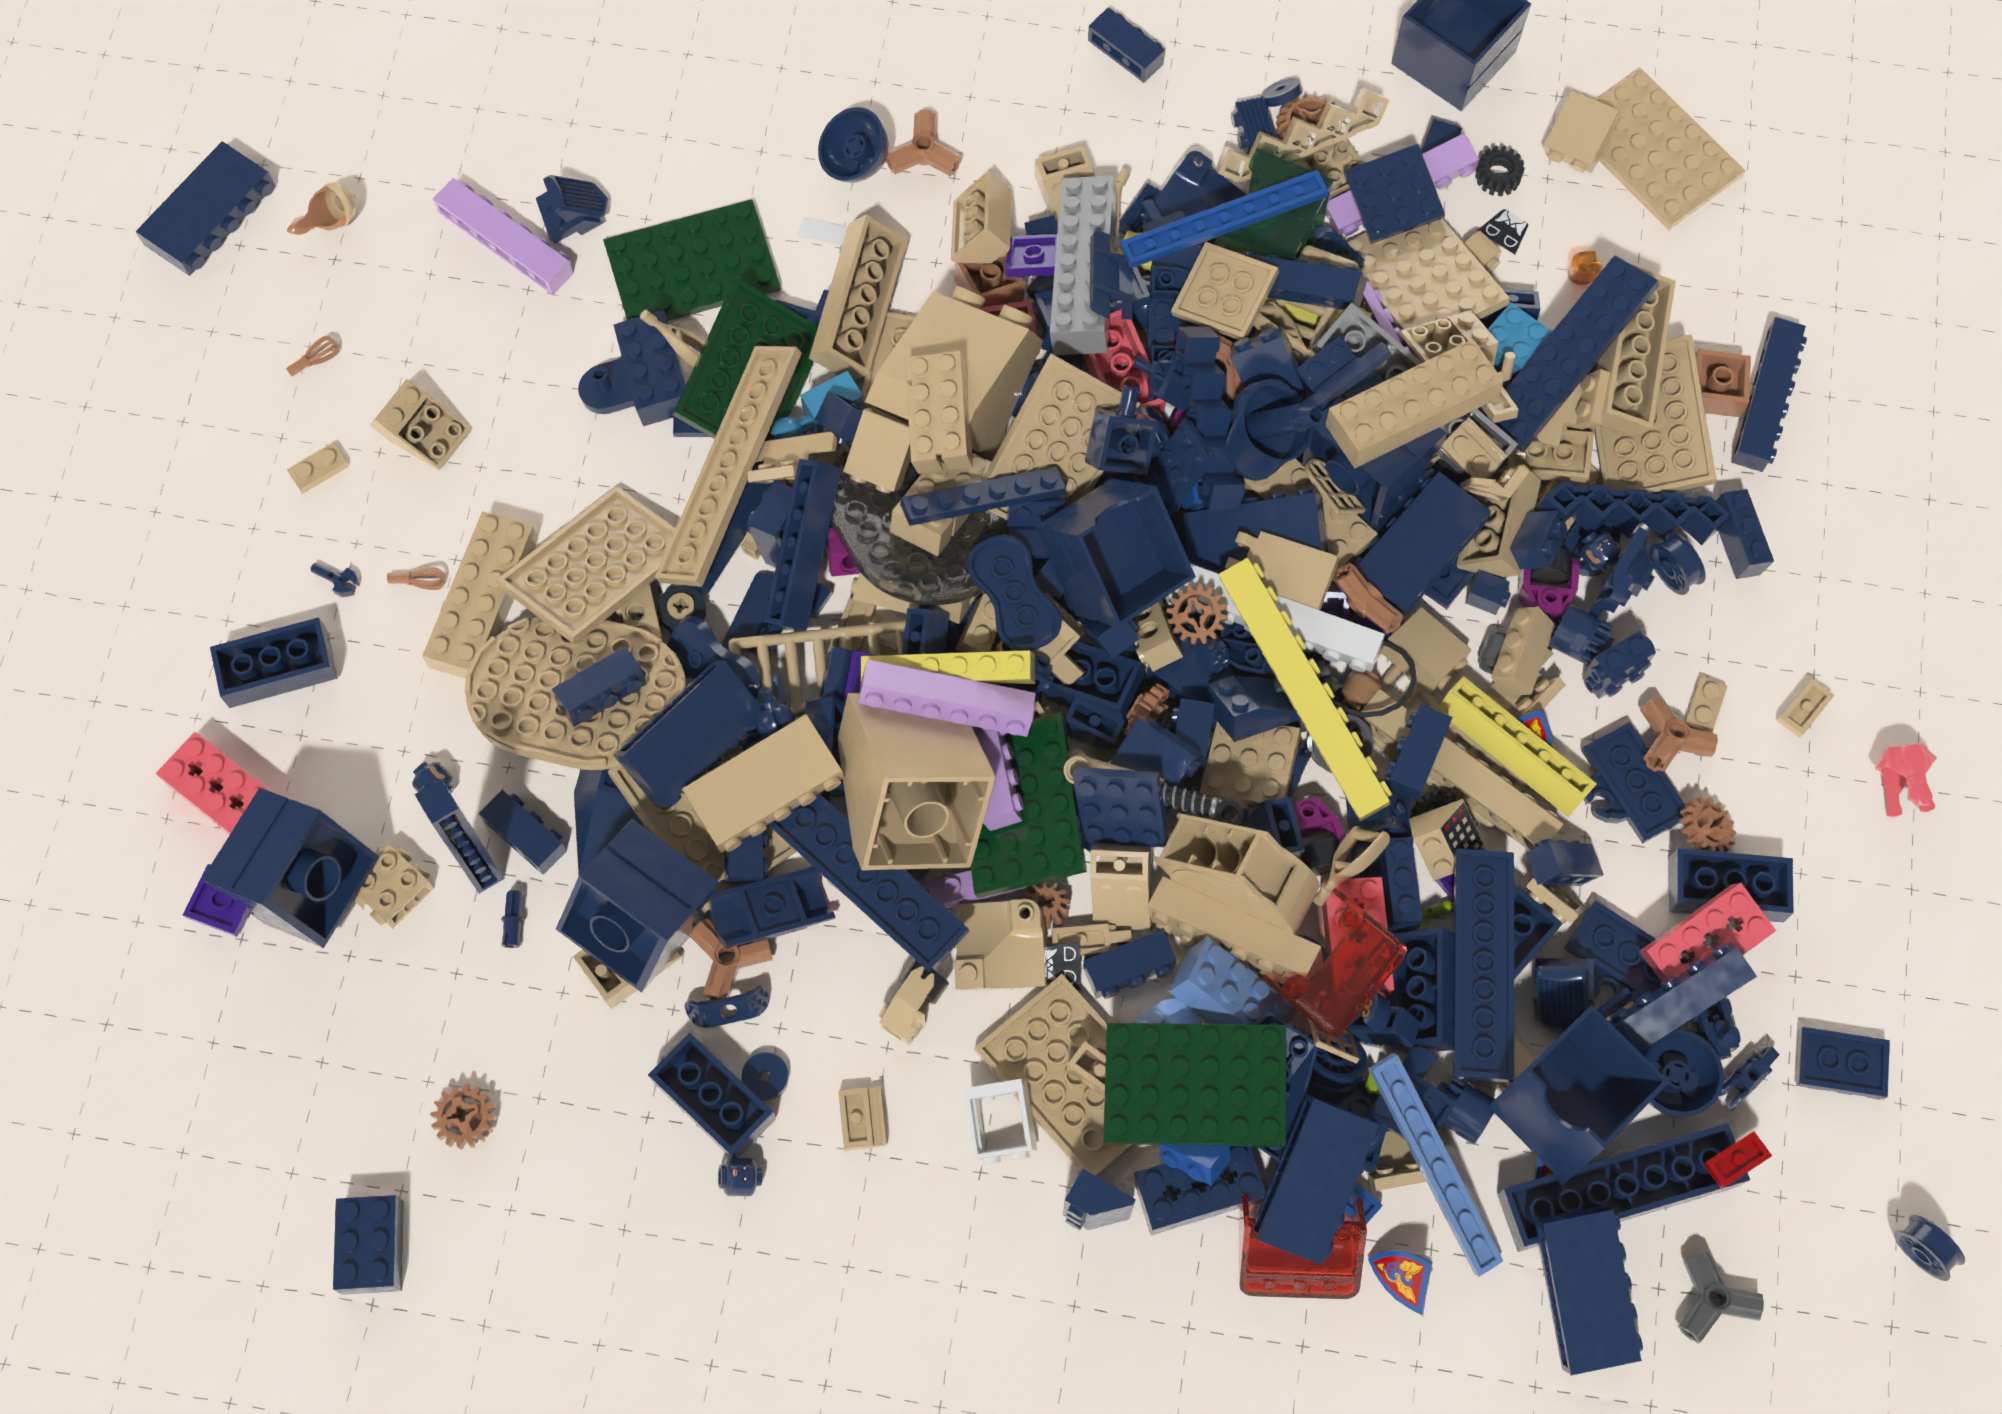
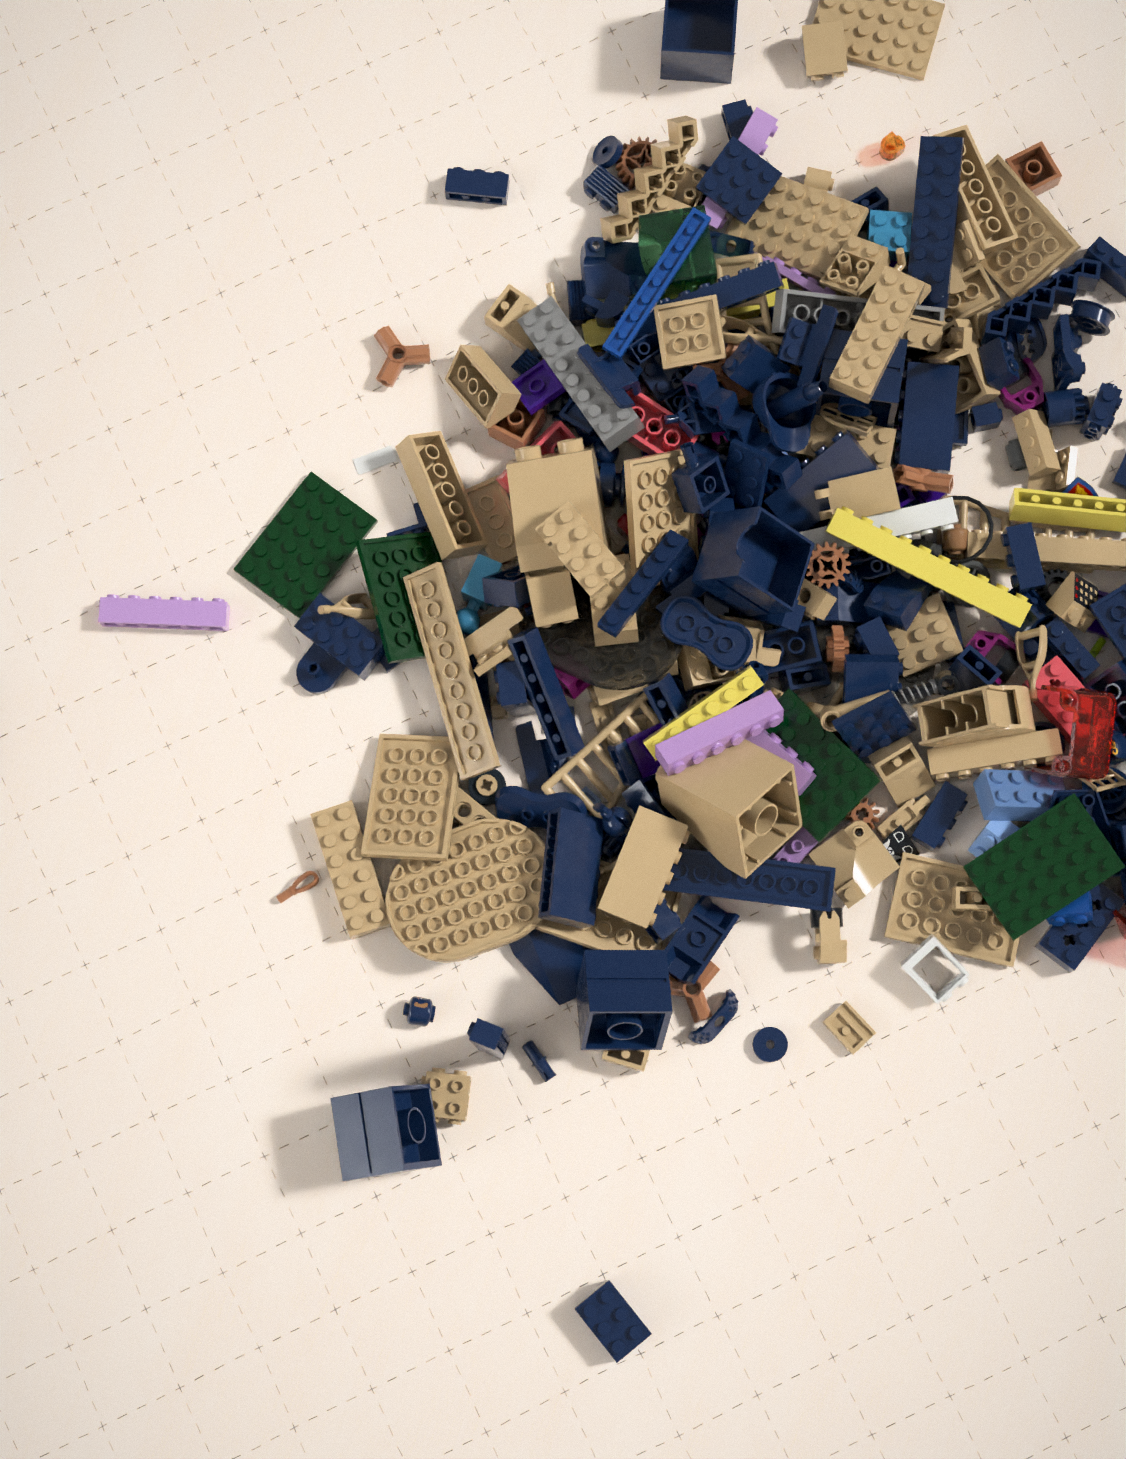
camera: 30 degrees left, 10 degrees up
(215, 909) = (344, 1192): dark purple plate -> none
(216, 773) = (276, 1124): coral brick -> none
(273, 662) = (254, 1009): dark blue brick -> none
(310, 358) = (100, 791): nougat piece -> none
(317, 468) = (170, 859): tan plate -> none
(328, 209) = (30, 678): piece -> none
(336, 579) = (244, 924): dark blue bar -> none
(420, 425) = (216, 783): tan slope -> none
(451, 1119) = (616, 1209): nougat gear -> none
(523, 831) = (501, 1001): dark blue brick -> none
(570, 206) = (194, 561): dark blue piece -> none
(599, 686) = (490, 878): dark blue brick -> none
(712, 1096) = (751, 1081): dark blue brick -> none
(739, 1176) = (803, 1116): dark blue head -> none
(853, 145) = (345, 392): dark blue piece -> none
(1095, 1203) = (1030, 980): dark blue slope -> none
(1431, 648) = (979, 481): tan brick -> none
(1504, 159) = (791, 101): black tyre -> none
(1505, 230) = (819, 152): black sticker -> none
(1600, 551) = (1037, 342): dark blue head -> none
(1768, 395) = (1065, 151): dark blue brick -> none

